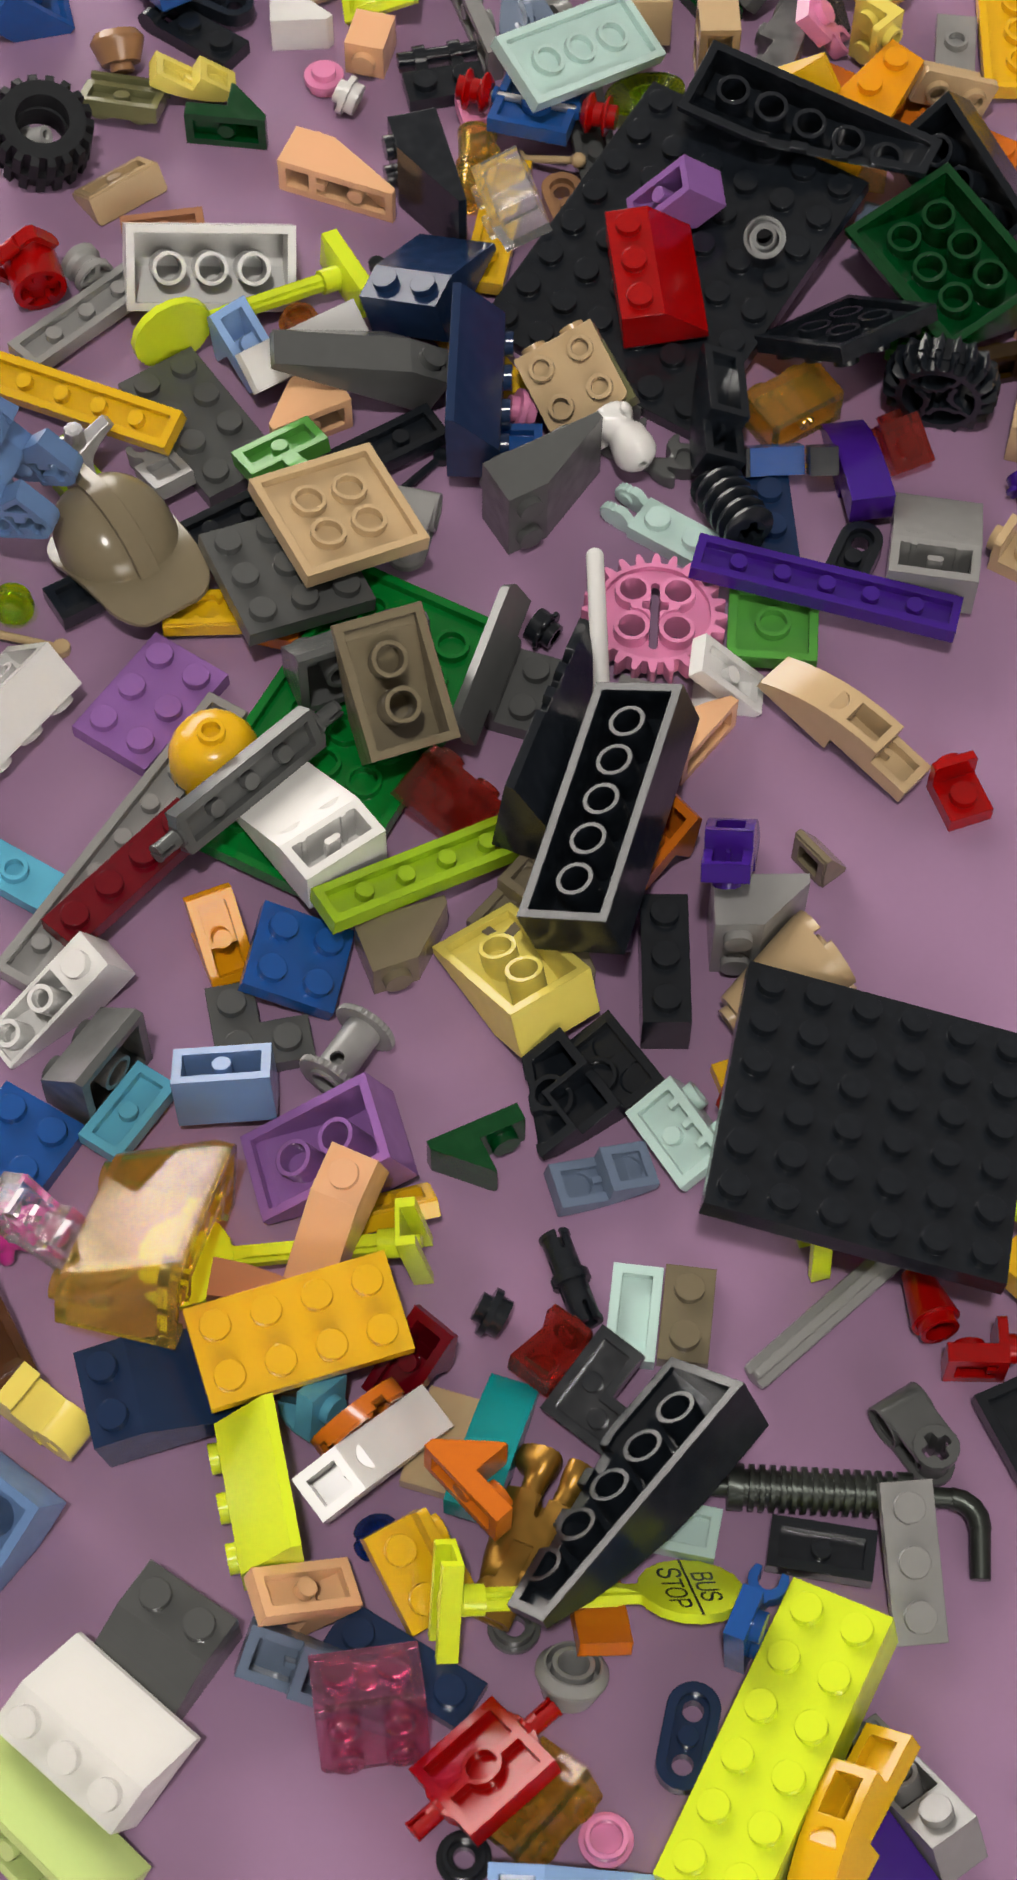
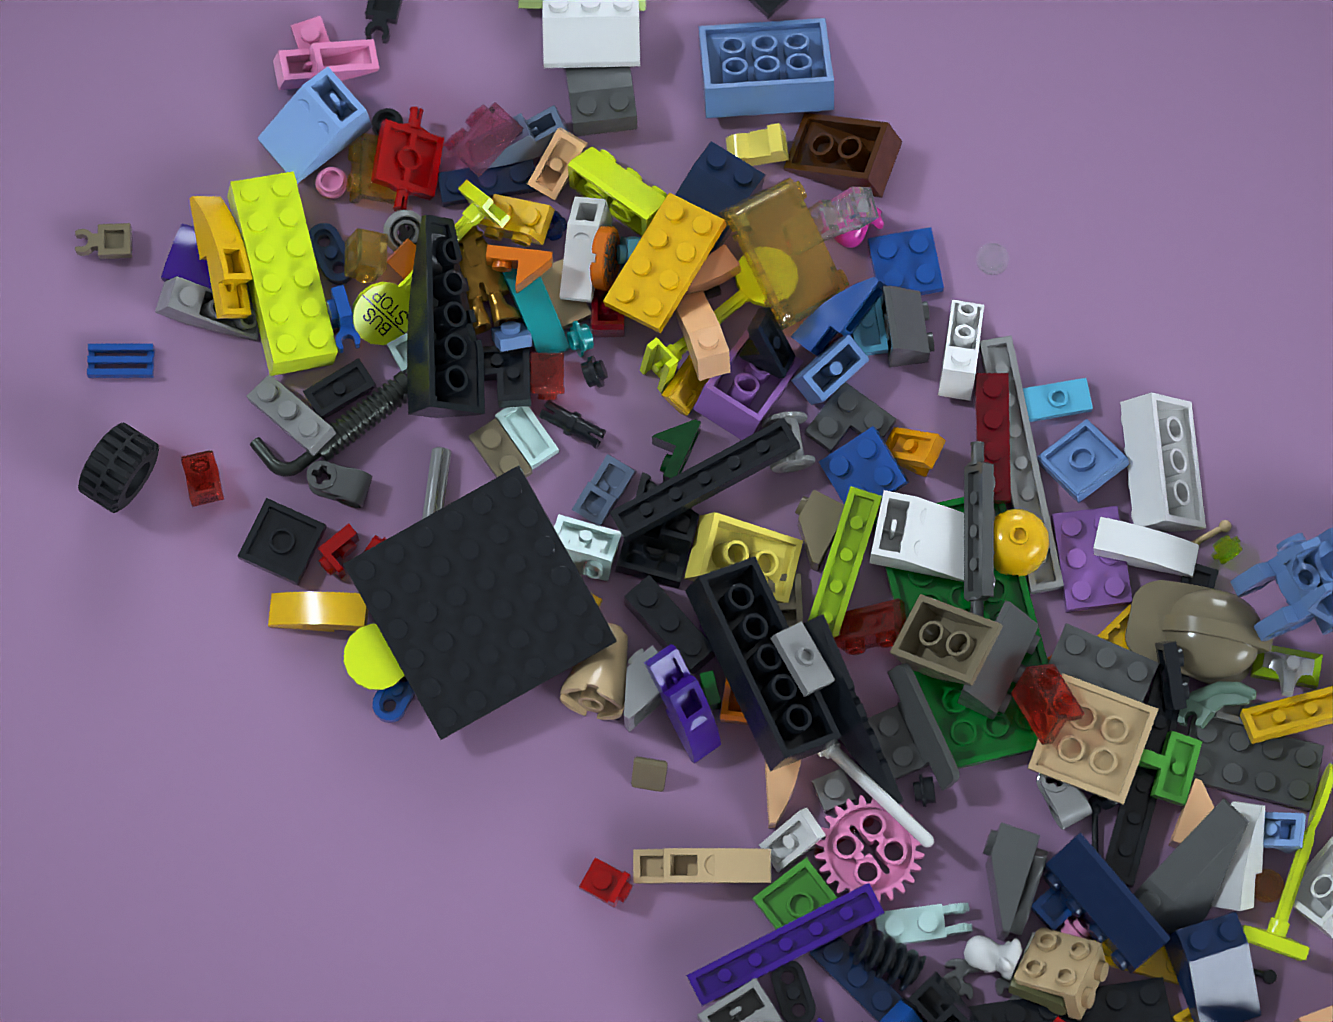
camera: 140 degrees right, 15 degrees up
(58, 788) = (1082, 460): none -> medium blue plate
(94, 655) = (1145, 547): none -> white slope
(148, 1121) = (838, 314): none -> blue slope
(179, 482) = (1211, 698): none -> sand green piece
(197, 515) = (1173, 686): none -> black plate
(272, 1163) = (767, 345): none -> black slope
(353, 557) = (1046, 701): none -> clear red bracket
(471, 1365) = (580, 338): none -> teal plate
(485, 1067) = (705, 480): none -> black plate
(555, 1427) = (511, 336): none -> medium blue plate
(566, 772) = (802, 659): none -> light grey plate
(651, 1678) = (365, 255): none -> clear yellow brick
(682, 874) = (710, 690): none -> green plate

